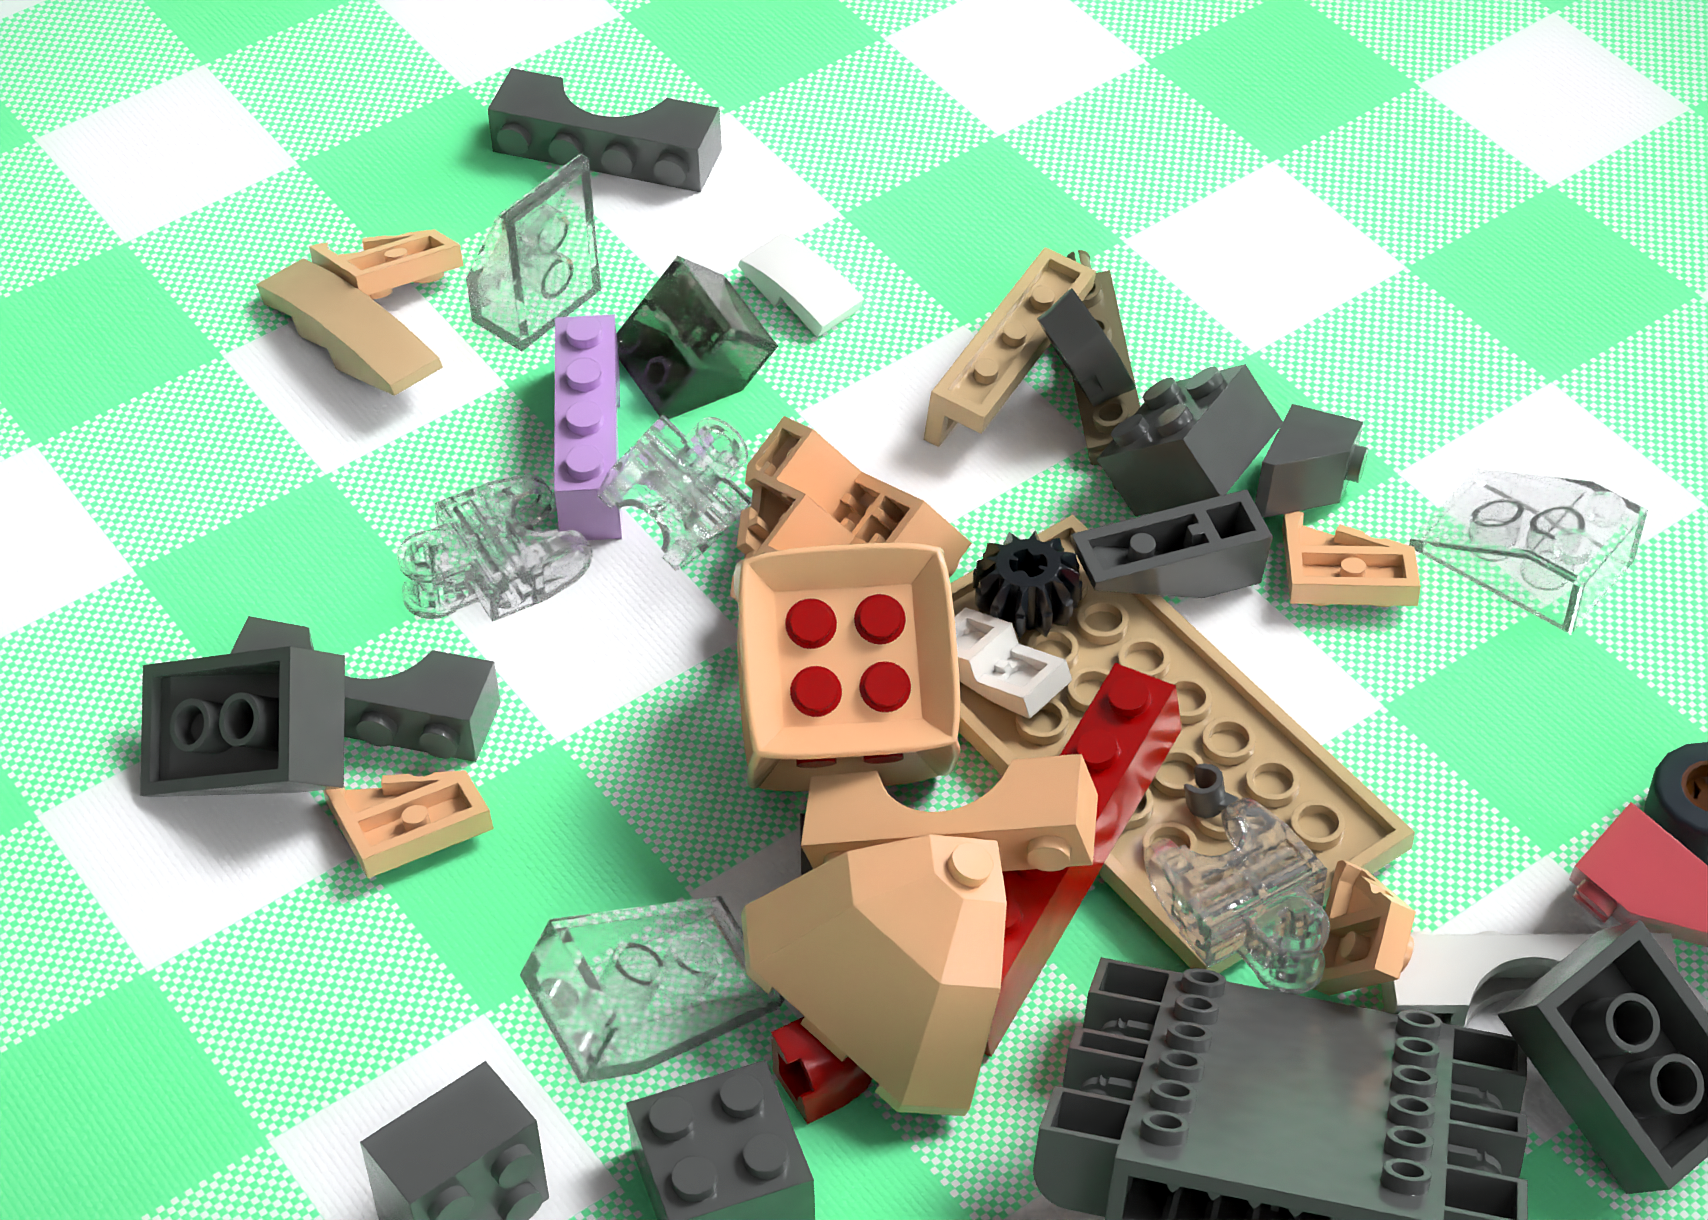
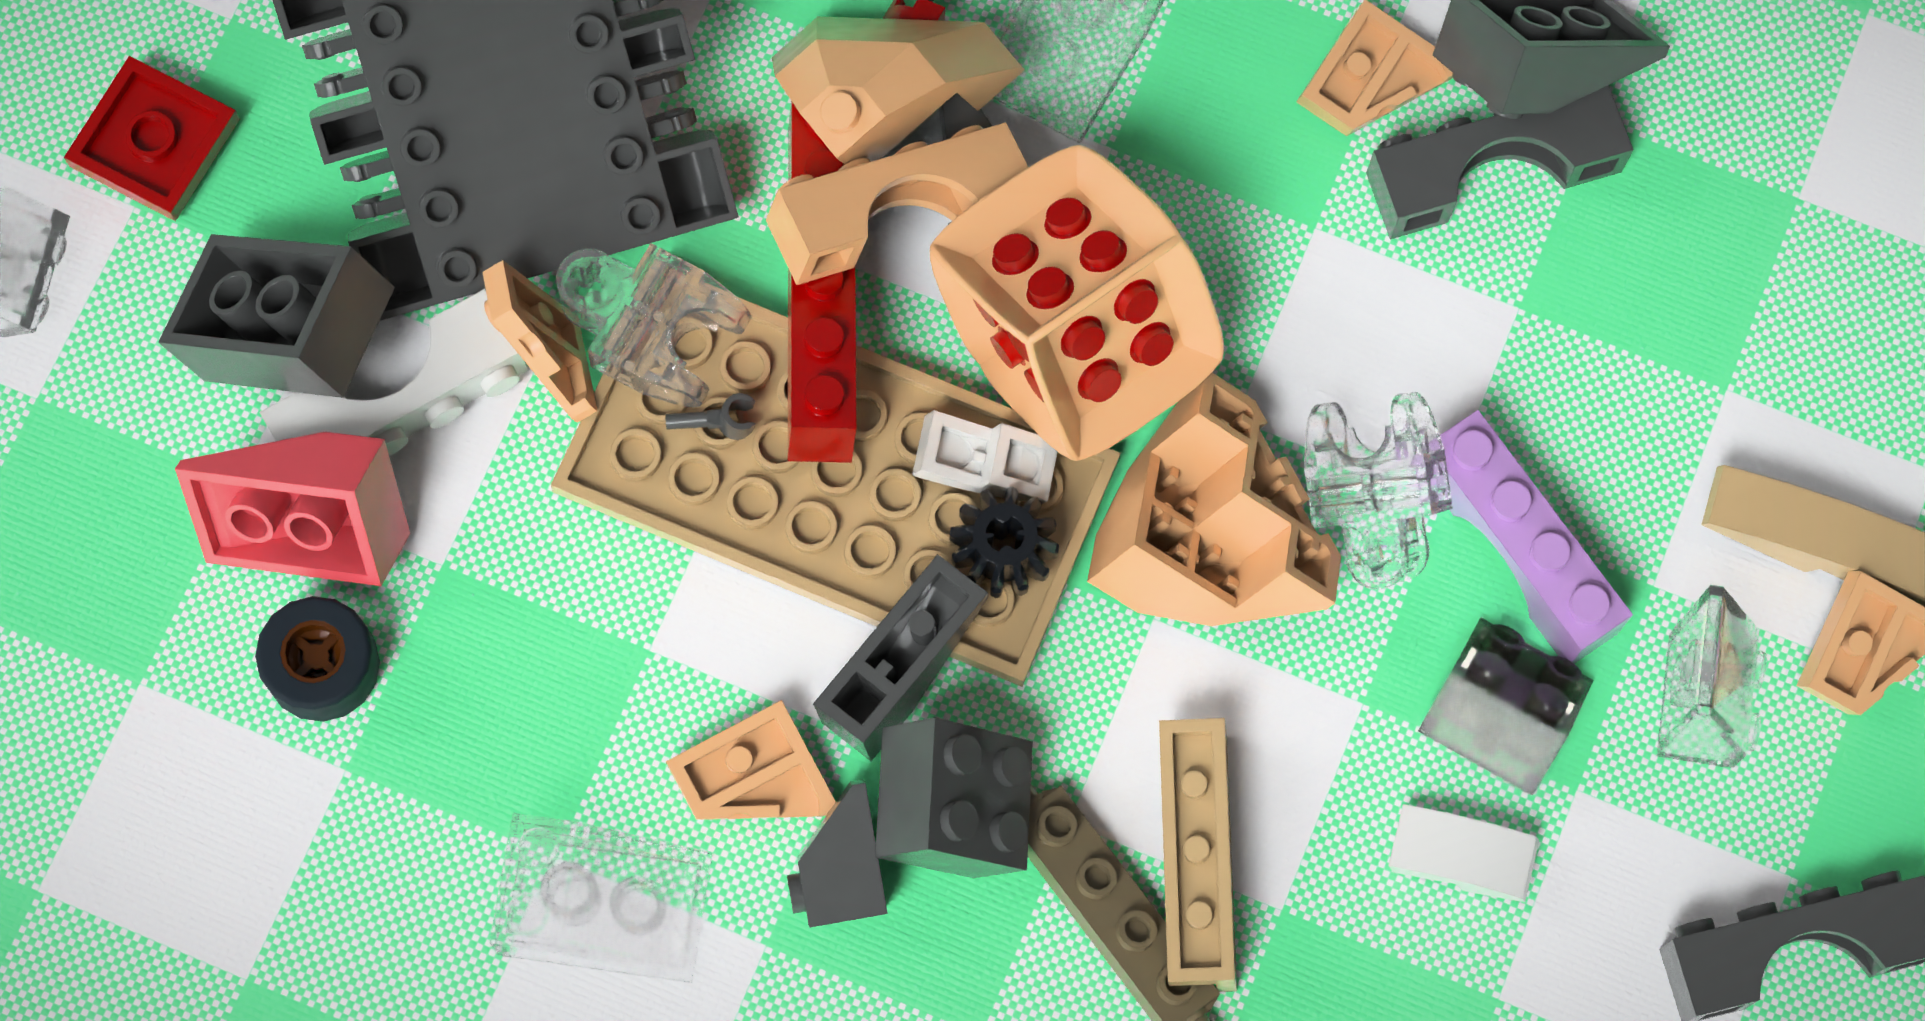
camera: 145 degrees right, 25 degrees up
(490, 552) = (1506, 353): clear piece -> none
(1085, 349) = (1110, 851): dark grey piece -> none

